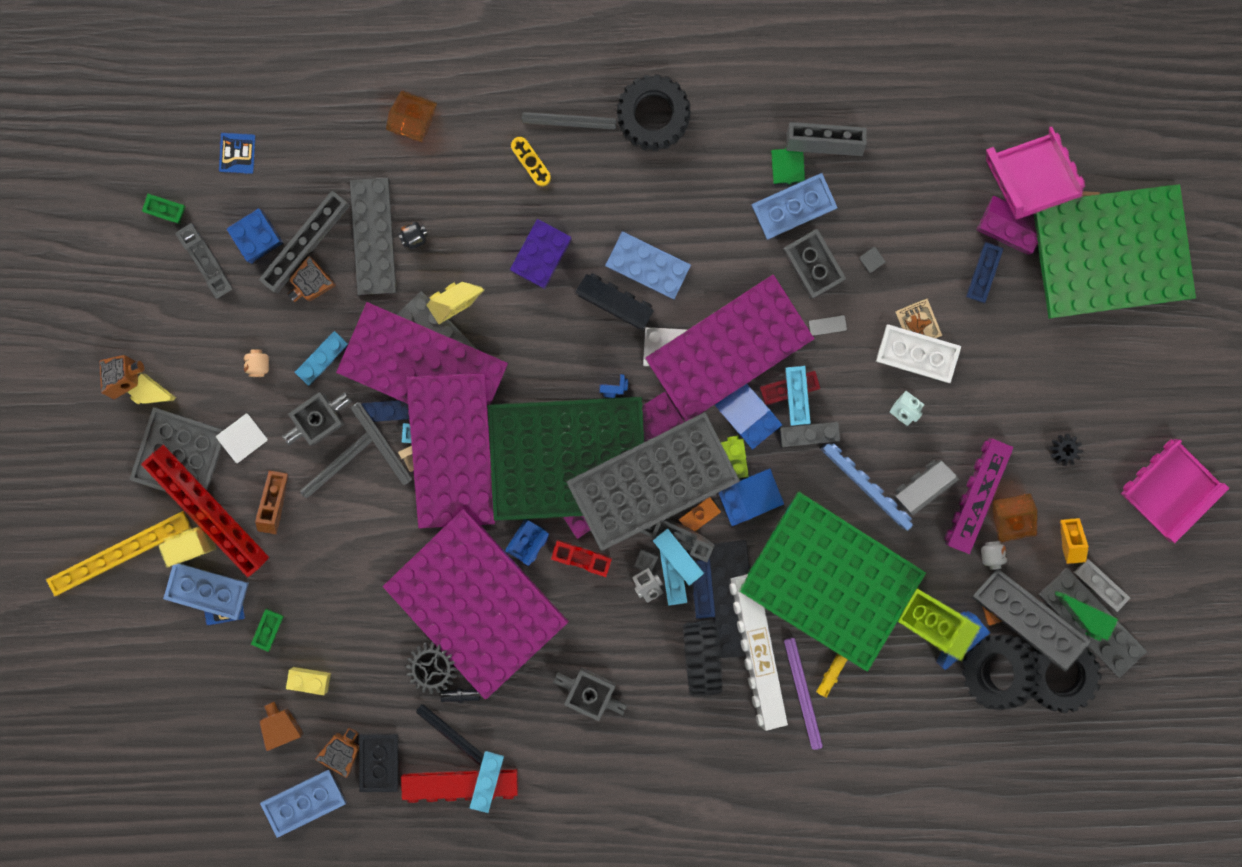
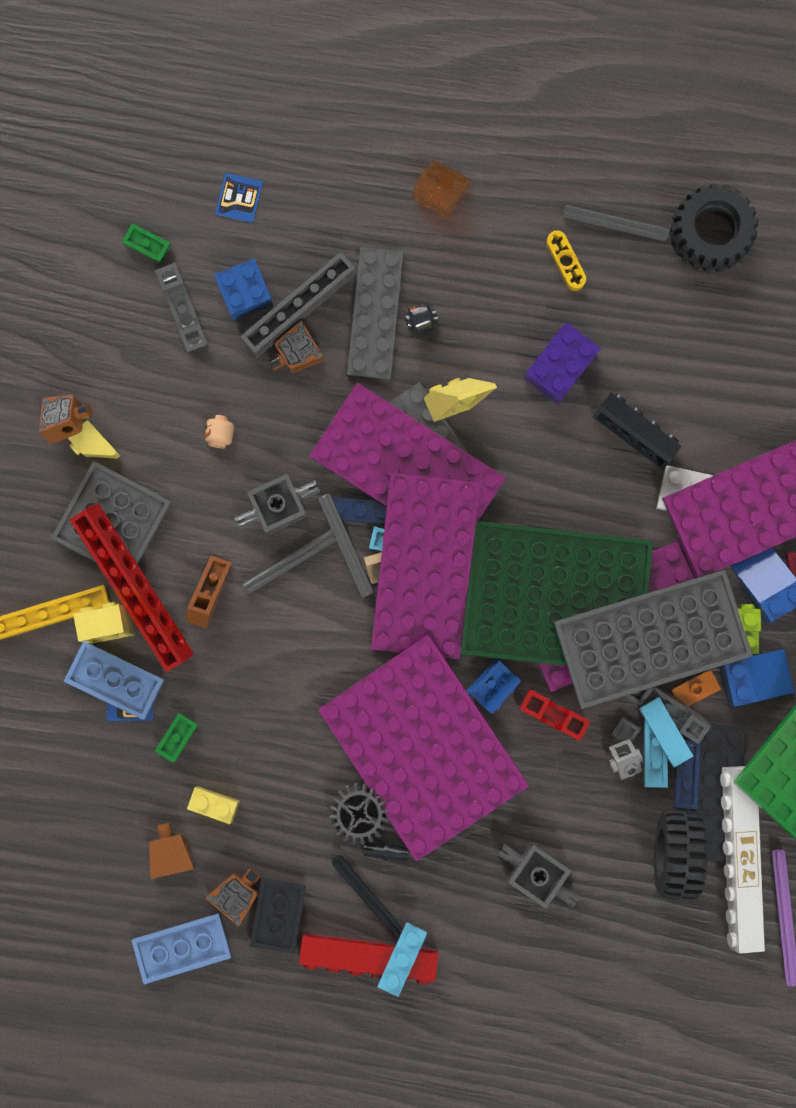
camera: 15 degrees right, 5 degrees down
(241, 438) = (187, 513): white sticker -> none
(321, 358) = (293, 439): dark azure plate -> none
(611, 391) = (623, 528): blue bracket -> none
(648, 265) = (679, 397): medium blue plate -> none

